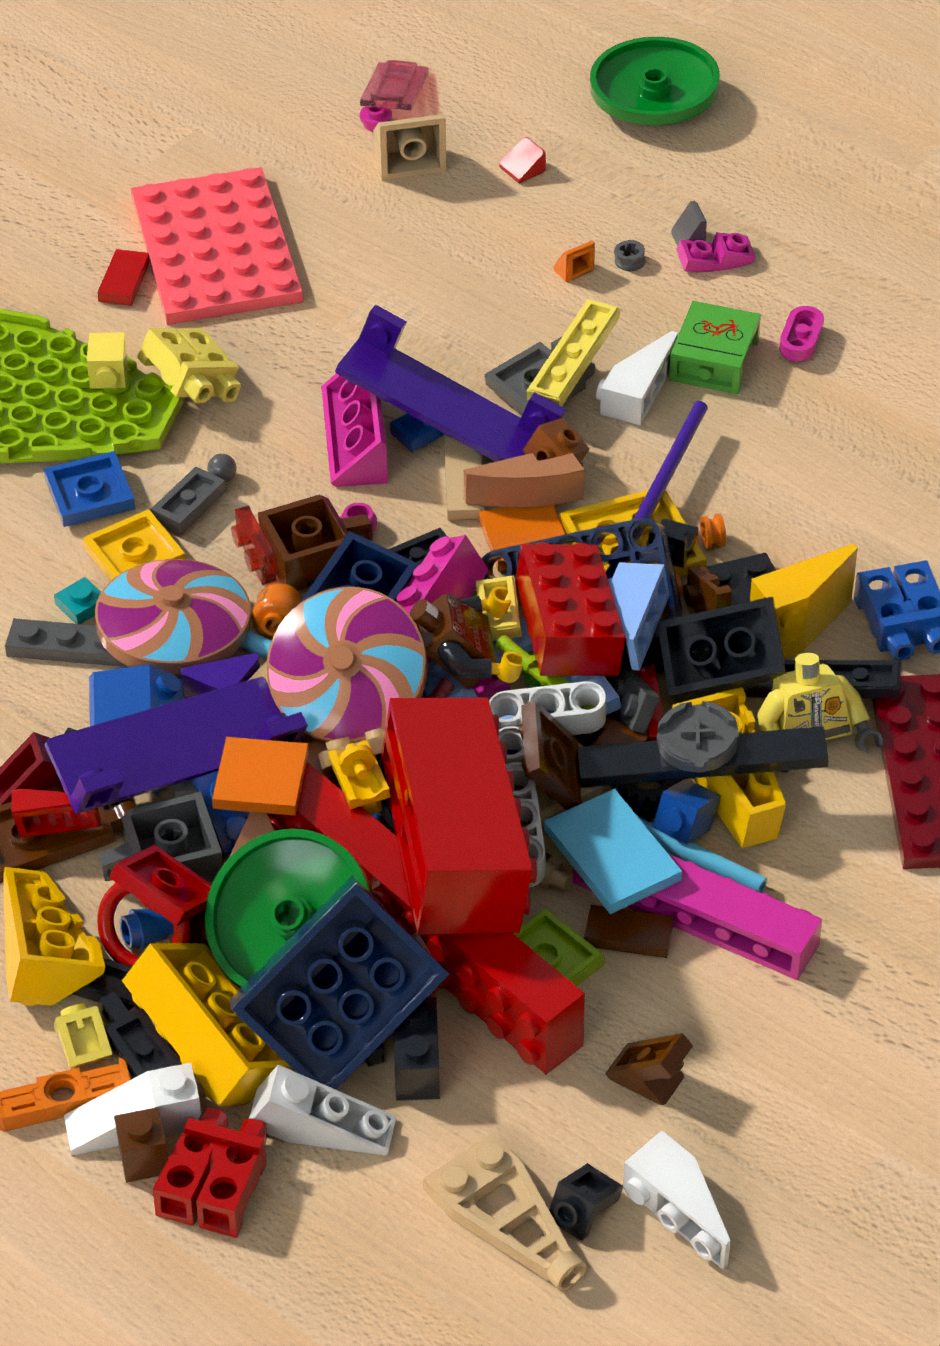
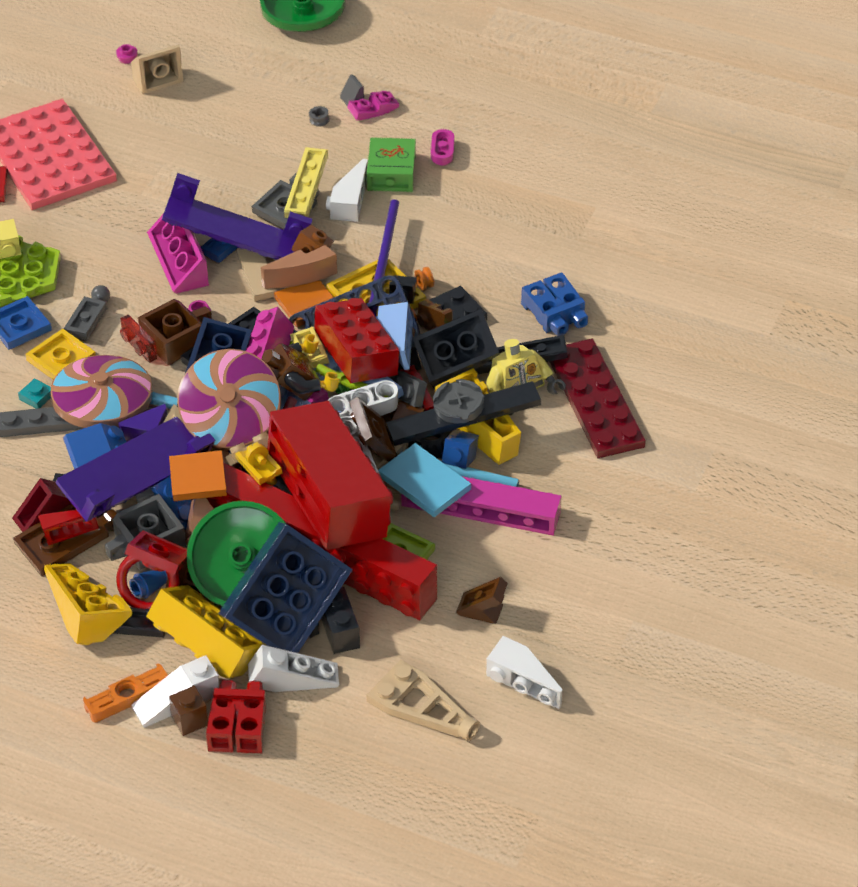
camera: 15 degrees left, 0 degrees up
(82, 1035) = (128, 655): light yellow bracket -> none
(135, 1037) = (161, 649): black hinge -> none
(191, 366) = (60, 232): light yellow hips -> none
(273, 606) = (166, 376): orange head -> none
(394, 85) = (133, 31): clear pink piece -> none
(524, 161) = (233, 66): slope -> none
(576, 261) = (286, 125): orange slope -> none
(582, 1198) = (465, 686): black bracket -> none
(629, 931) = (445, 526): reddish brown tile -> none
(808, 595) = (498, 303): yellow slope -> none

